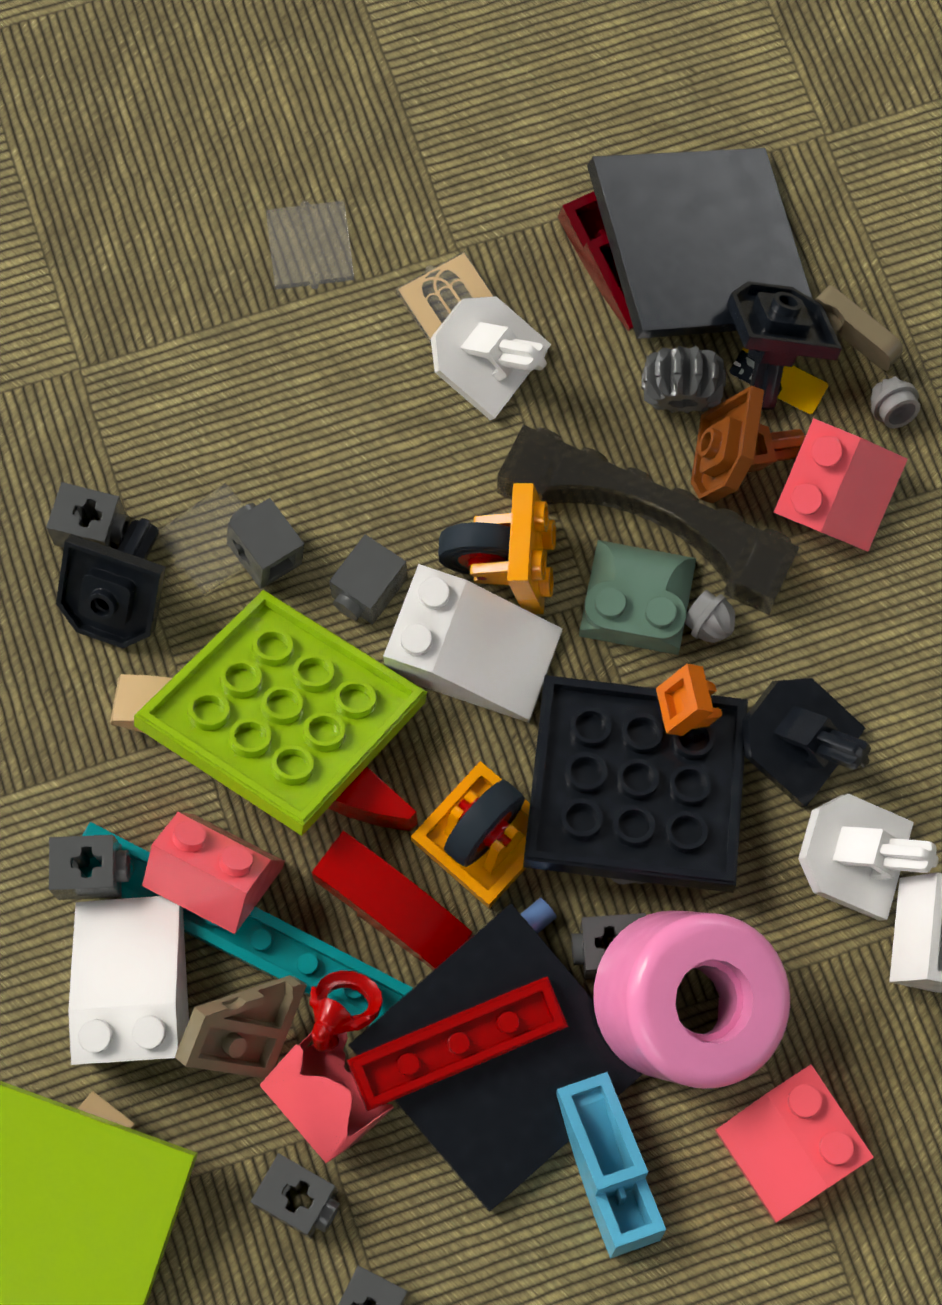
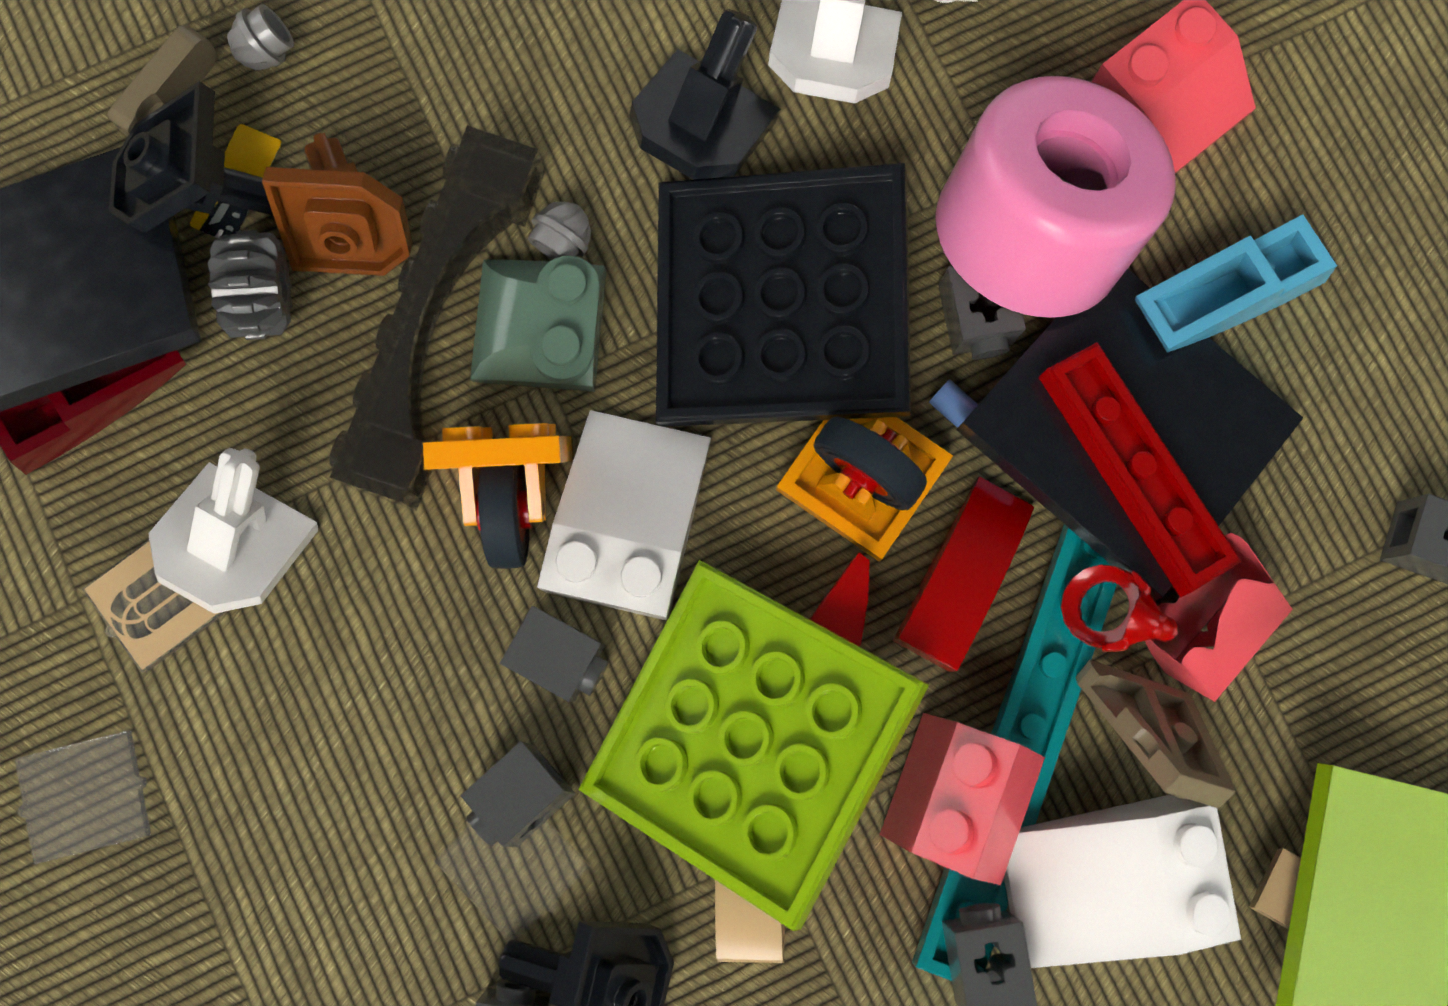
camera: 100 degrees left, 10 degrees up
(288, 1175) = (1312, 654): dark grey brick -> none
(687, 701) = (679, 242): orange tile -> none
(840, 485) = (376, 92): coral slope -> none

